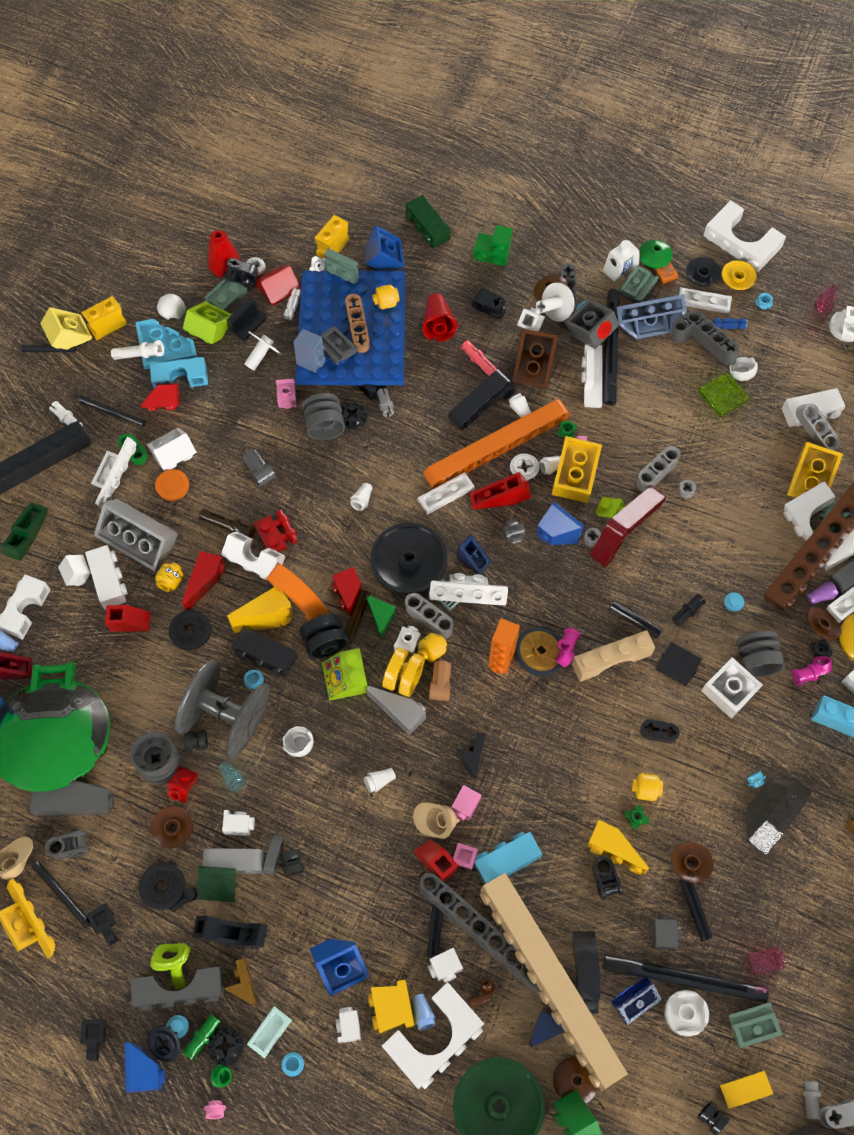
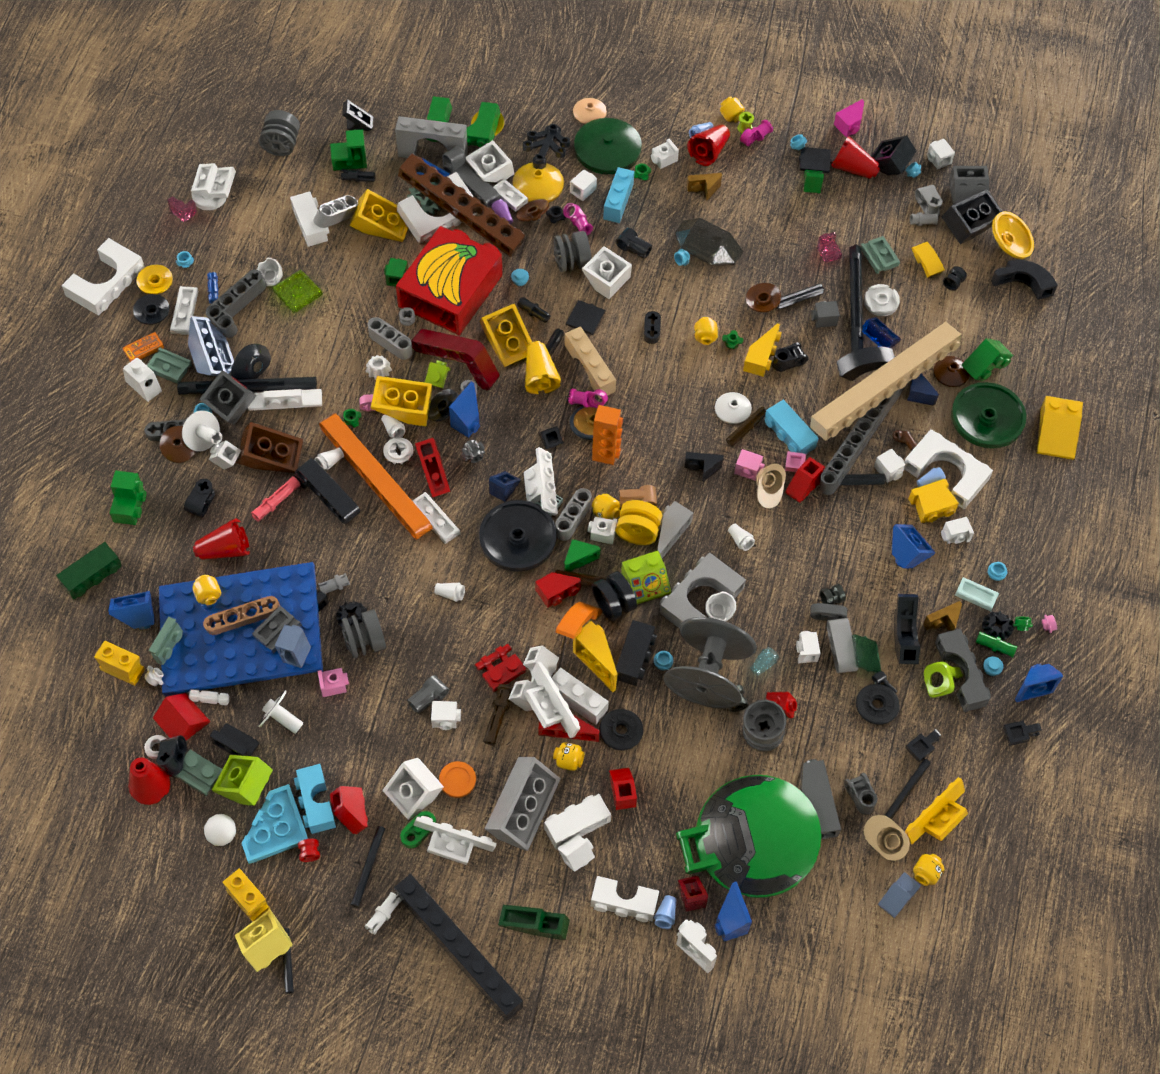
camera: 100 degrees left, 5 degrees down
(134, 366) = (309, 850): none -> red wheel
(144, 349) = (291, 836): white pin -> none
(156, 1039) = (1016, 670): black gear -> none
(165, 820) = (825, 695): reddish brown dish -> none
(214, 556) = (549, 703): none -> white bracket
(228, 593) = (580, 697): none -> white brick
(234, 479) = (445, 715): none -> white brick
(308, 700) = (708, 572): none -> light grey arch
(518, 812) = (743, 429): none -> dark brown axle
(527, 608) = (551, 437): none -> black slope
(546, 813) = (730, 413): none -> white dish
(575, 508) = (440, 405): none -> black dish
(605, 600) = (540, 370): none -> yellow cone
(626, 459) = (378, 367): none -> white piece
(644, 349) = (244, 363): none -> black piece
(654, 579) = (507, 334): none -> yellow slope
(655, 254) = (122, 357): green dish -> none
(727, 528) = (450, 279): none -> red brick
(741, 482) = (395, 270): none -> green brick
(778, 725) = (629, 240): none -> black piece

